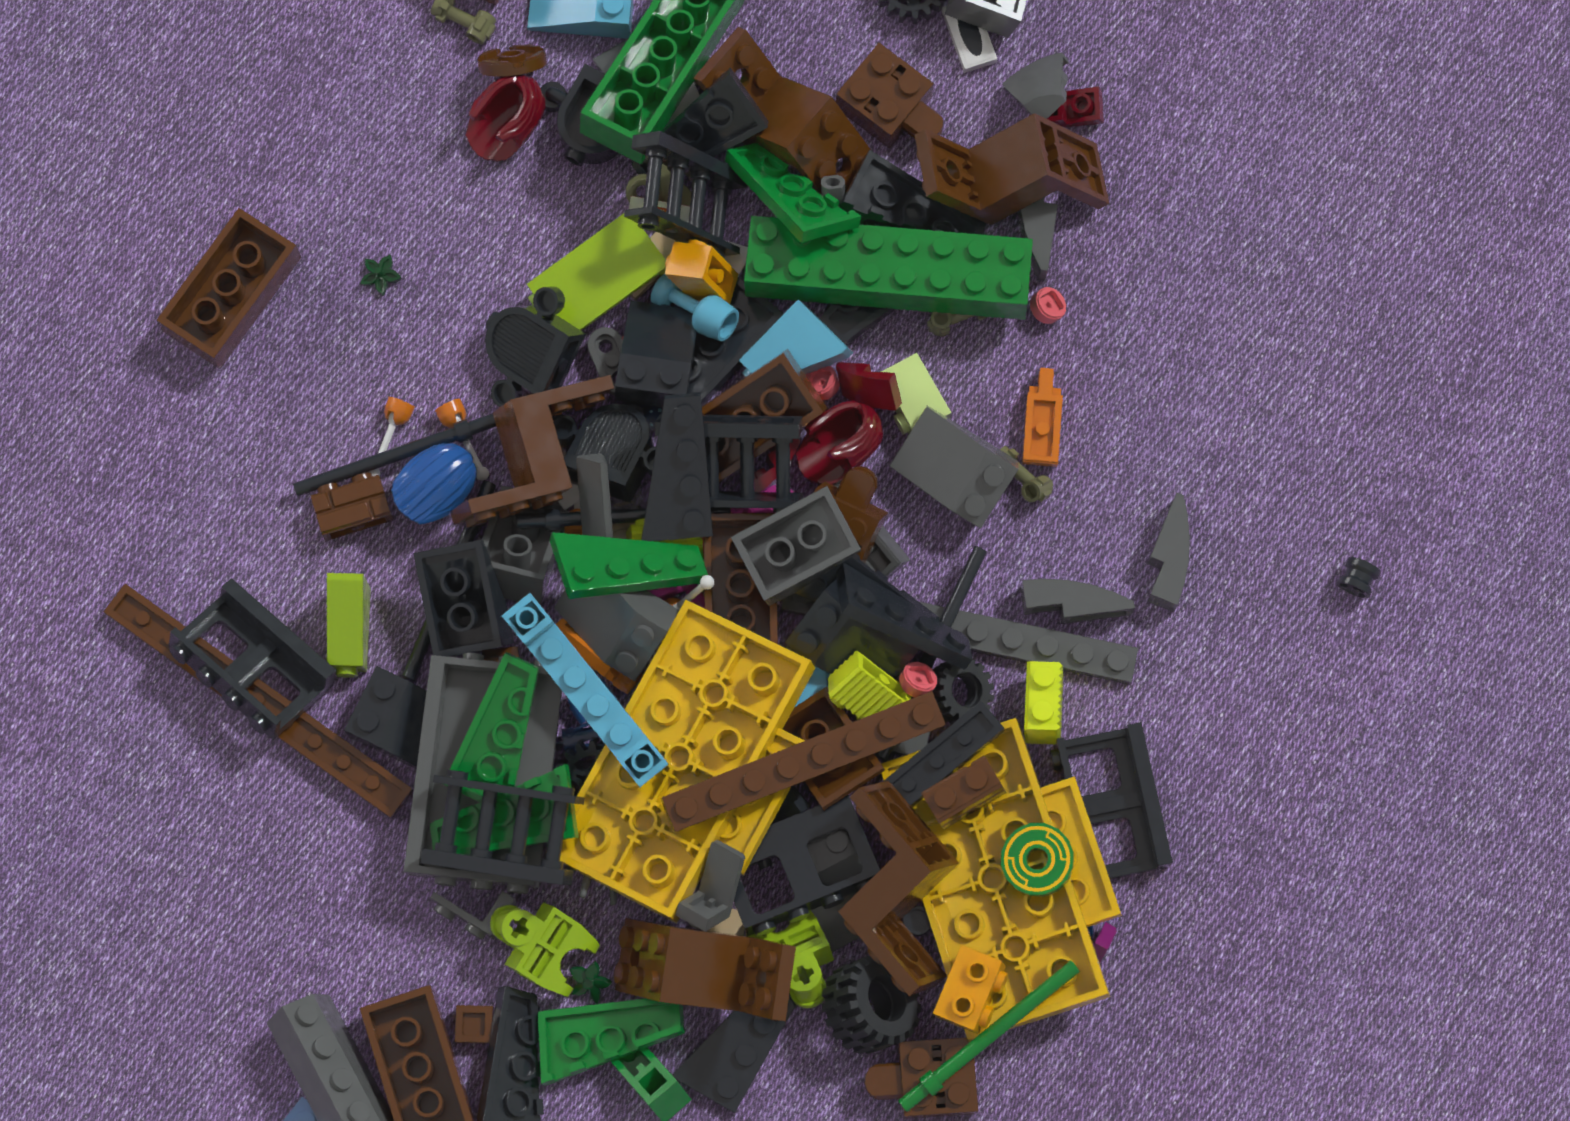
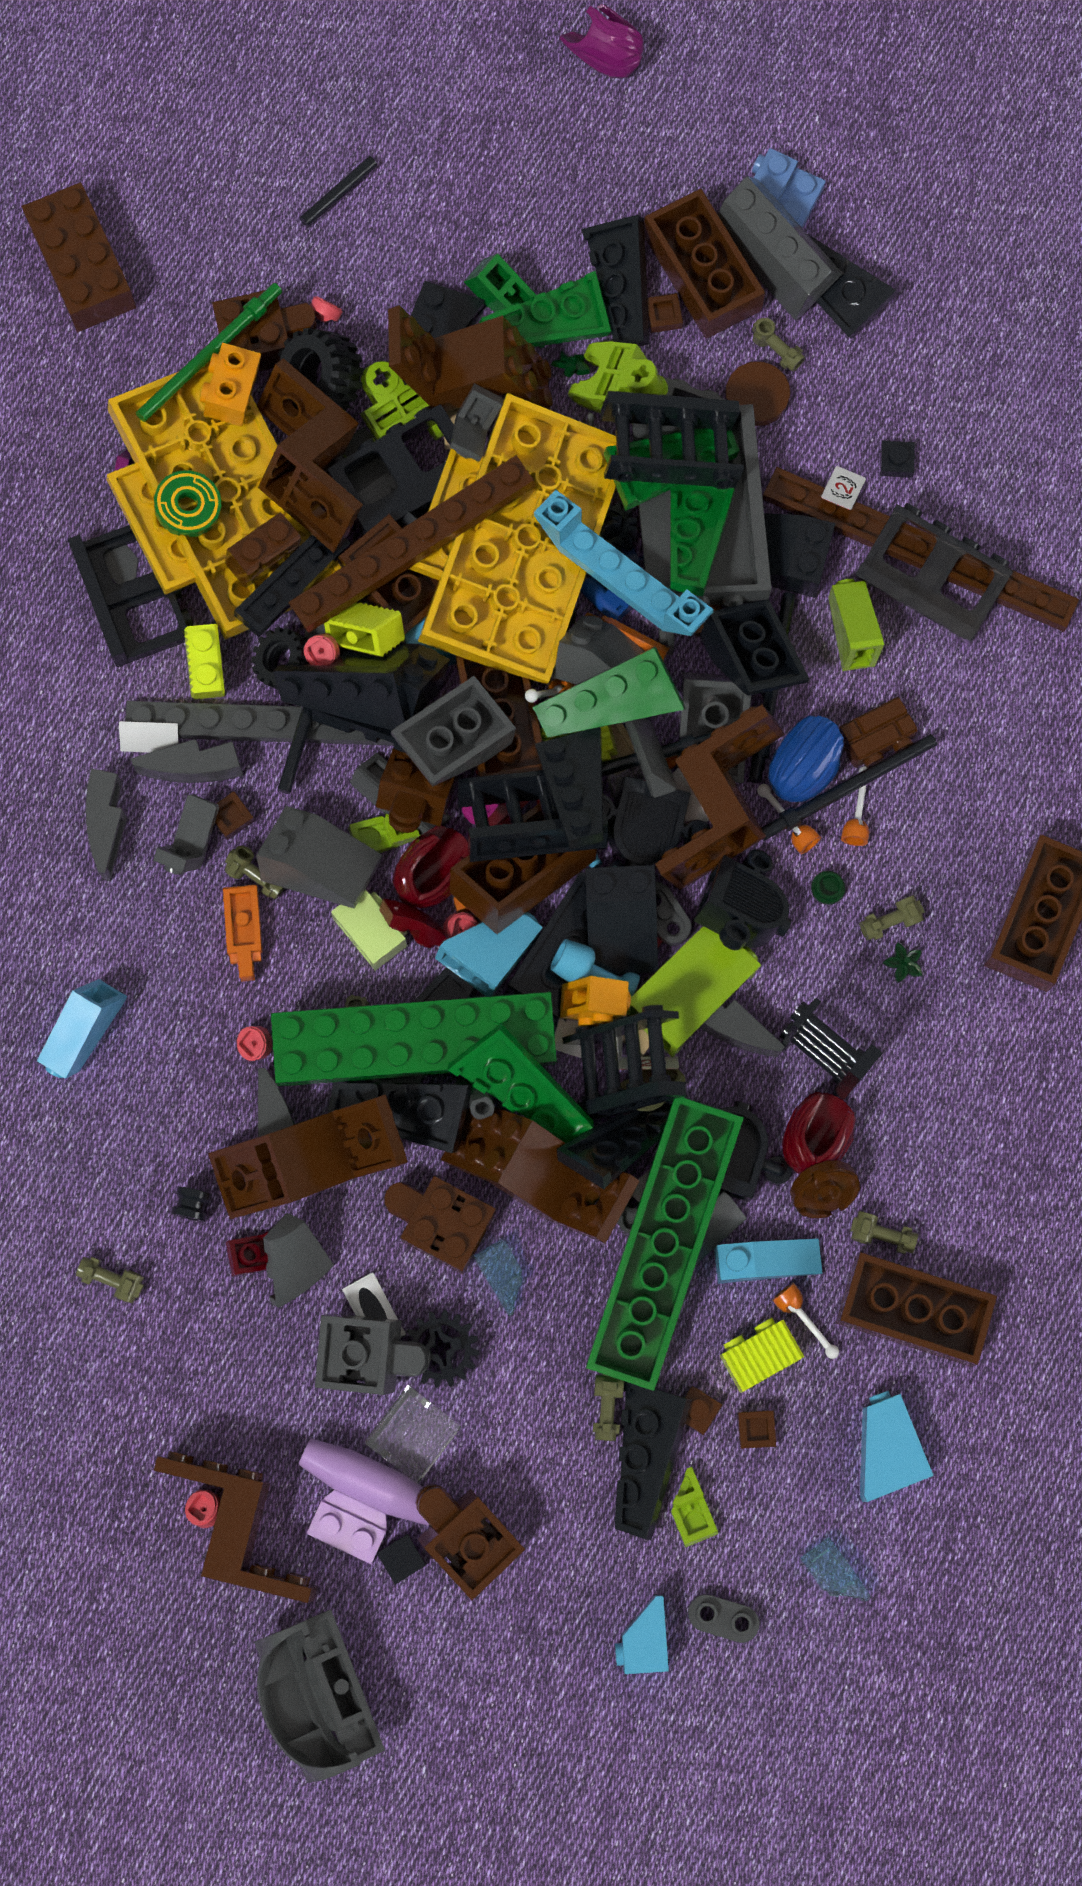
camera: 170 degrees right, 0 degrees up
(251, 1003) = (854, 295): none -> black wing
(255, 810) = (897, 459): none -> black plate
(323, 782) = (843, 487): none -> white sticker
(363, 320) = (908, 911): none -> olive bar
(366, 979) = (764, 336): none -> olive bar
(390, 913) = (763, 387): none -> reddish brown tile
(439, 360) = (828, 887): none -> dark green plate
(468, 162) = (828, 1049): none -> black fence
(555, 227) = (742, 1031): none -> dark grey slope
(839, 47) = (501, 1273): none -> clear light blue slope
(851, 1094) = (325, 310): none -> coral tile
(896, 496) = (379, 834): none -> lime slope
(1039, 540) = (232, 815): none -> reddish brown plate
(1085, 517) = (191, 837): none -> dark grey bracket
(1113, 638) = (147, 736): none -> white sticker
(1117, 841) = (121, 564): none -> dark grey sticker
(1132, 160) = (191, 1204): none -> black wheel
(1204, 97) = (127, 1286): none -> olive bar
(1218, 347) = (80, 1028): none -> medium azure slope

